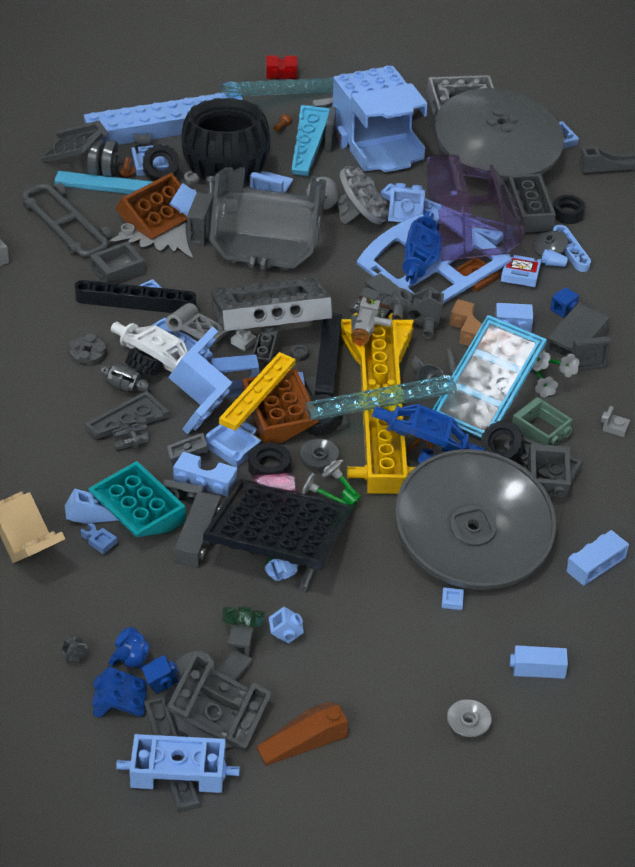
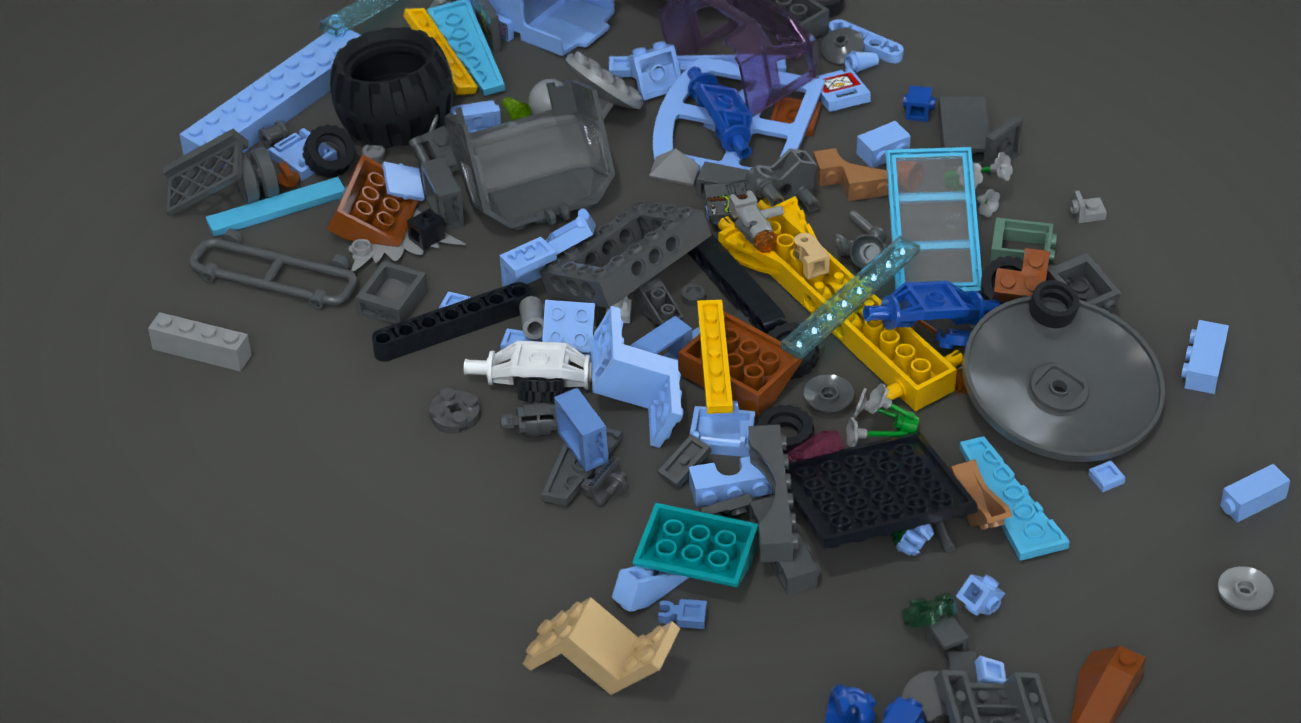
camera: 30 degrees left, 0 degrees up
(134, 394) = (581, 429): none -> medium blue window
(173, 235) = (426, 229): none -> black brick
(189, 516) = (775, 530): none -> dark grey arch
(193, 327) = (569, 323): none -> light blue bracket
(204, 280) = (526, 261): none -> light blue bracket
(247, 675) = (989, 670): none -> light blue tile
(251, 277) = (572, 232): none -> light blue piece
(287, 134) = (420, 20): none -> yellow plate
(300, 188) = (515, 108): none -> clear neon green cone
(344, 565) = (989, 506): none -> medium nougat arch
(362, 269) = (675, 168): none -> light grey slope
(367, 590) = (1028, 528): none -> medium azure wing
(380, 363) = (811, 254): none -> tan leg
(511, 455) = (1055, 290): none -> black tyre
(512, 444) = (1019, 284): none -> dark orange brick

